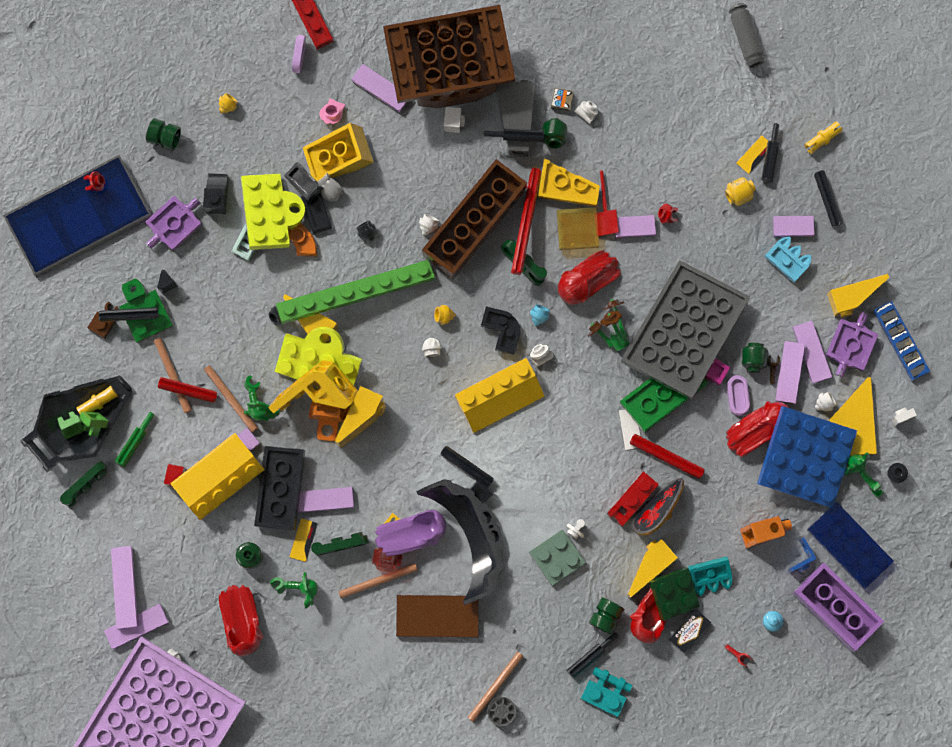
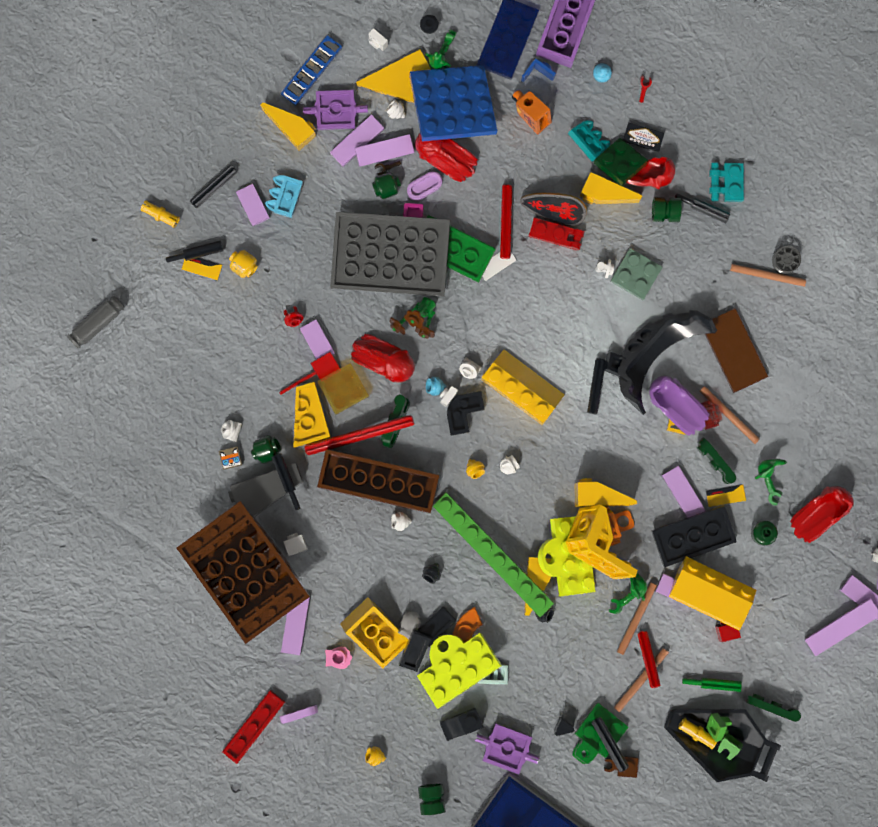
camera: 125 degrees left, 5 degrees up
(524, 321) = (447, 395): none -> white plate

